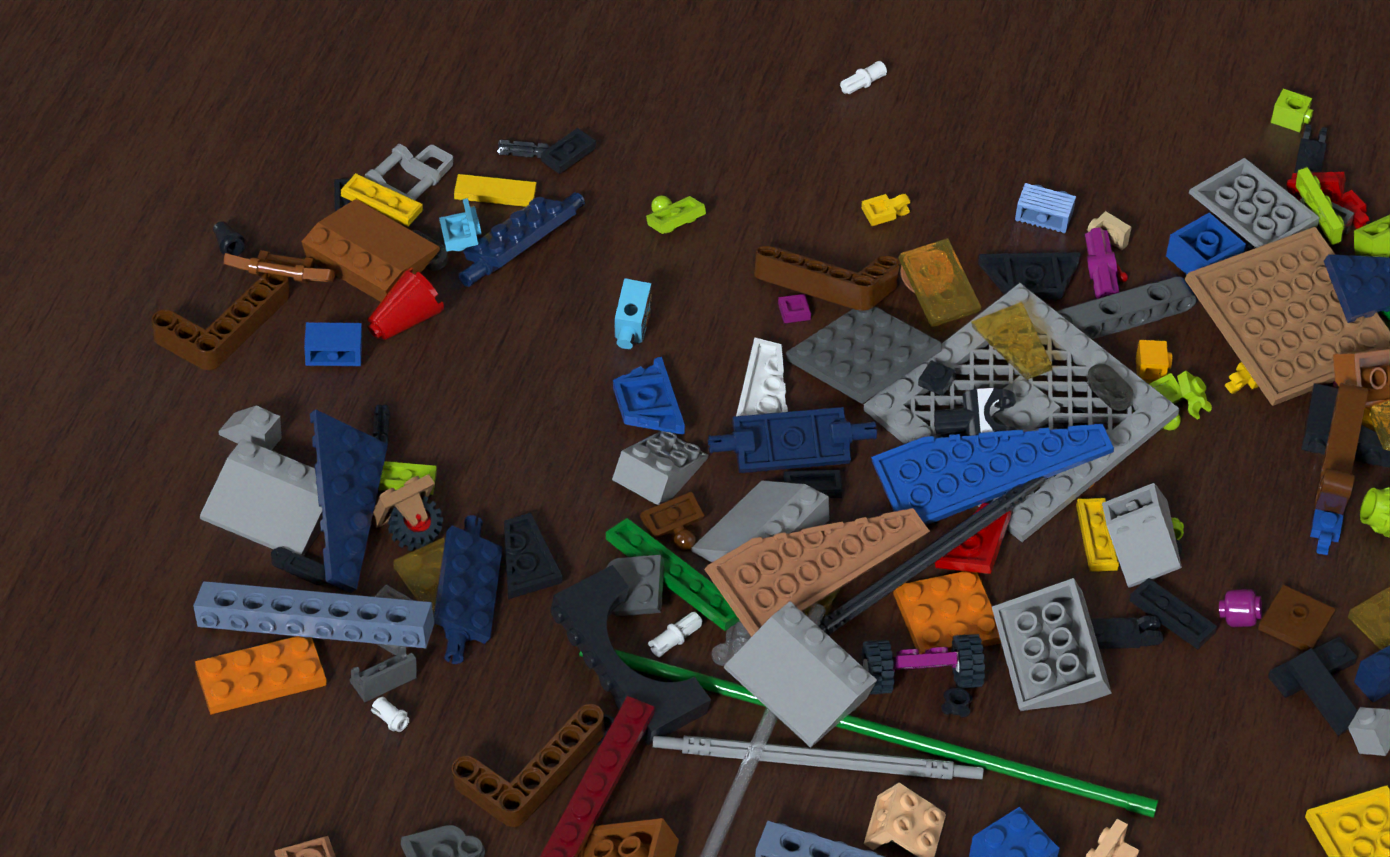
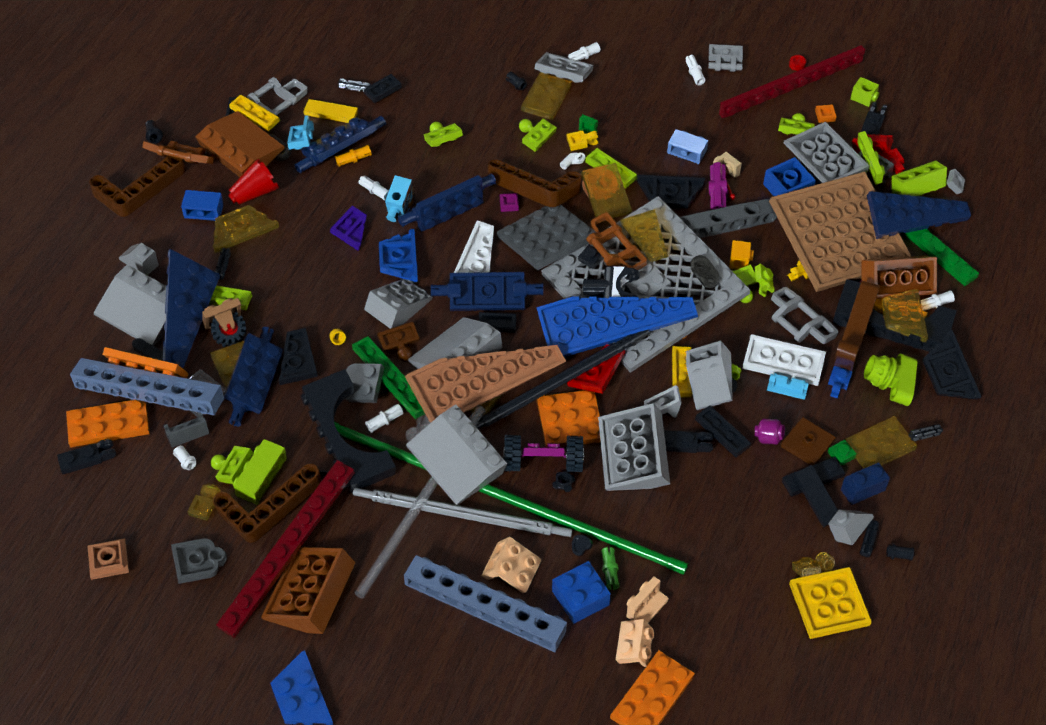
camera: 10 degrees right, 5 degrees up
(239, 725) = (86, 456): none -> black hinge
(301, 579) = (143, 363): none -> orange plate
(397, 372) = (240, 226): none -> clear yellow wing
(435, 775) = (203, 505): none -> clear yellow plate
(466, 720) = (233, 465): none -> lime plate
(508, 724) = (259, 471): none -> lime brick
(545, 255) = (353, 156): none -> light orange pin
(565, 362) = (350, 227): none -> dark purple wing
(582, 520) = (340, 336): none -> yellow hinge
(588, 300) = (373, 187): none -> white axle
(707, 315) = (448, 203): none -> dark blue plate
(773, 129) = (519, 83): none -> black pin
(816, 206) = (537, 135): none -> lime plate
(818, 146) = (546, 96): none -> clear yellow plate
(838, 102) = (563, 67): none -> light grey plate
(877, 237) = (572, 158): none -> white arm
(891, 184) = (587, 124): none -> green plate
(918, 235) = (599, 158): none -> lime plate
(944, 351) = (597, 239): none -> dark orange bar
(999, 787) = (580, 544): none -> black piece
(1034, 93) = (695, 70): none -> white axle
(1047, 815) = (610, 568): none -> bright green pin
(1076, 66) = (725, 53): none -> light grey plate
(1089, 574) = (667, 401): none -> light grey slope
(1181, 102) = (791, 82): none -> dark red plate
(1183, 73) = (797, 62): none -> red tile
(1197, 166) = (795, 125): none -> lime plate
(1239, 146) = (825, 113): none -> orange plate
(1242, 506) = (785, 359): none -> white plate
(1247, 542) = (789, 387): none -> medium azure hinge
(1272, 457) = (810, 327): none -> light grey bar
(1328, 790) = (807, 566): none -> clear yellow plate
(1348, 629) = (842, 452): none -> green plate

